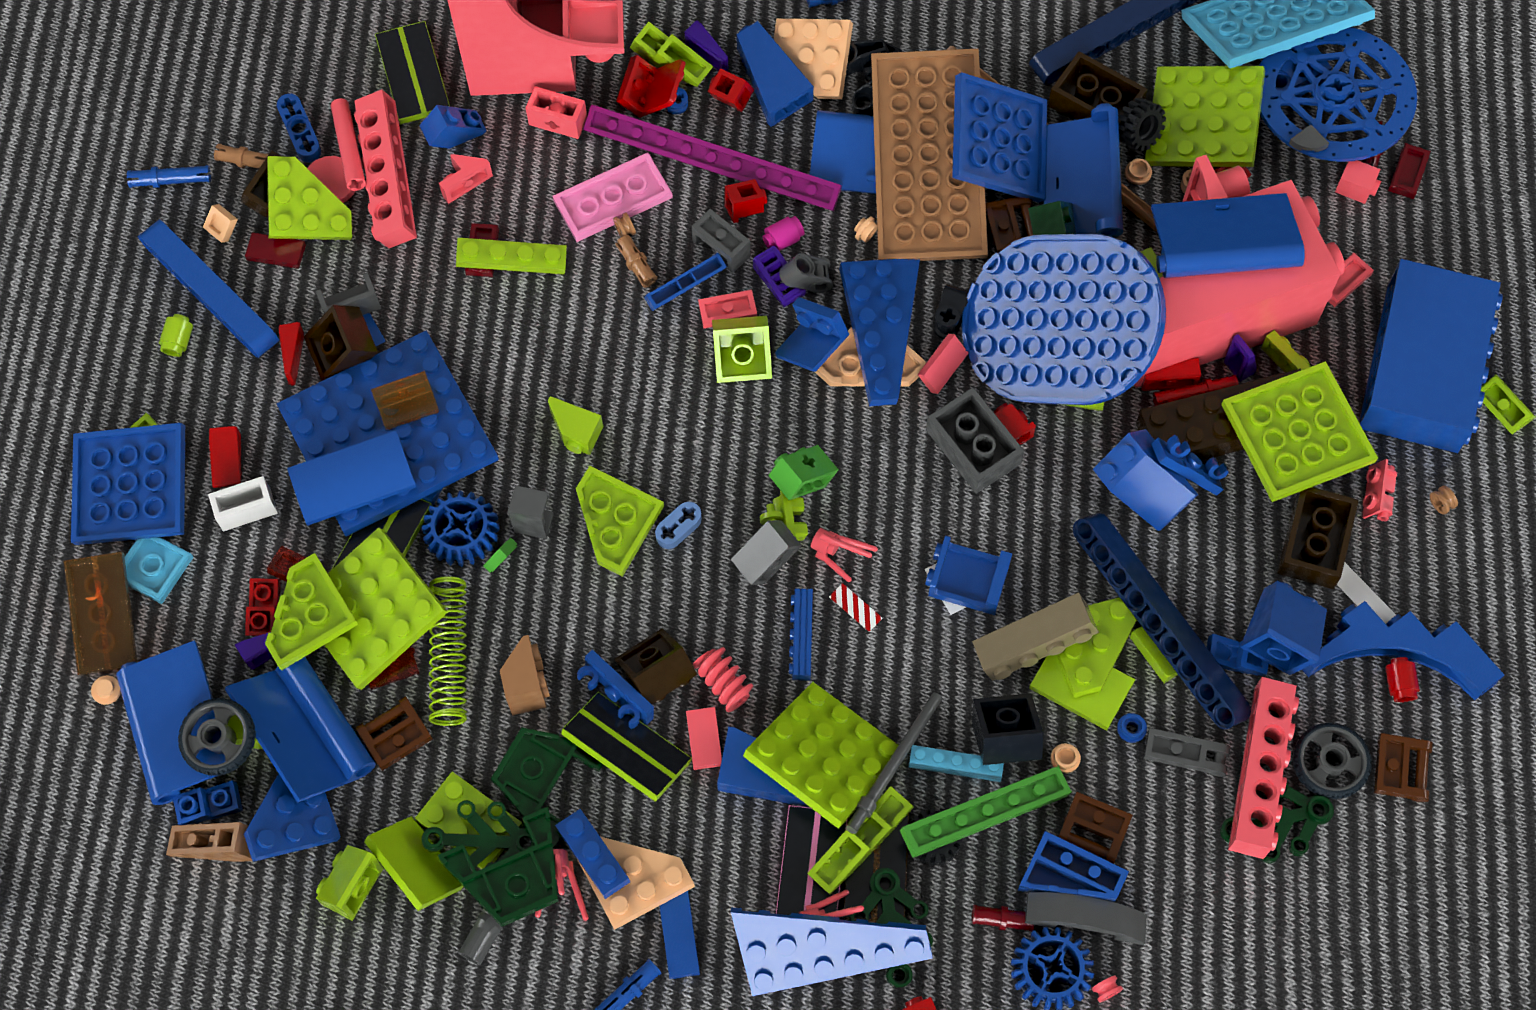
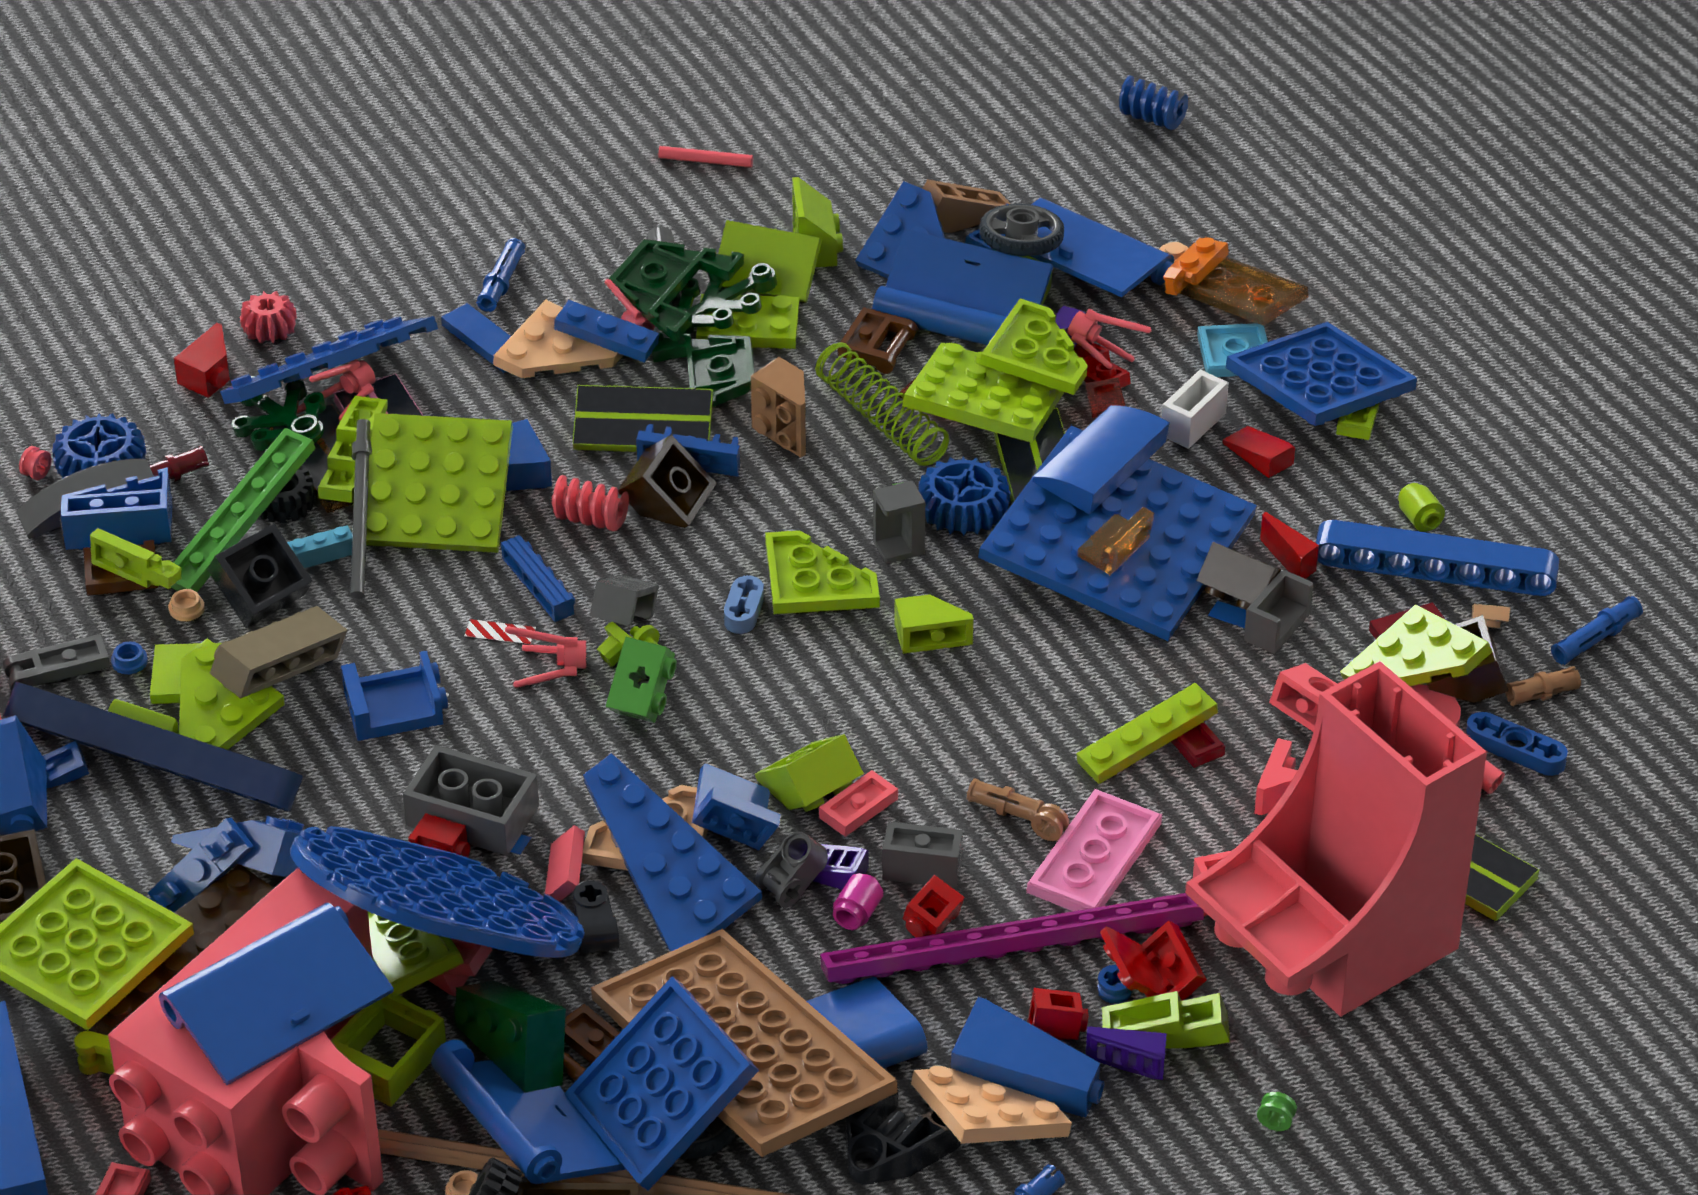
camera: 145 degrees right, 25 degrees down
(108, 655) = (1194, 264): none -> orange hinge
(249, 620) = (1085, 329): none -> coral plant
(685, 282) = (934, 792): blue piece -> none
(704, 738) = (574, 463): coral tile -> none
(865, 229) = (764, 950): light nougat plate -> none
(1091, 799) = (132, 561): none -> lime hinge

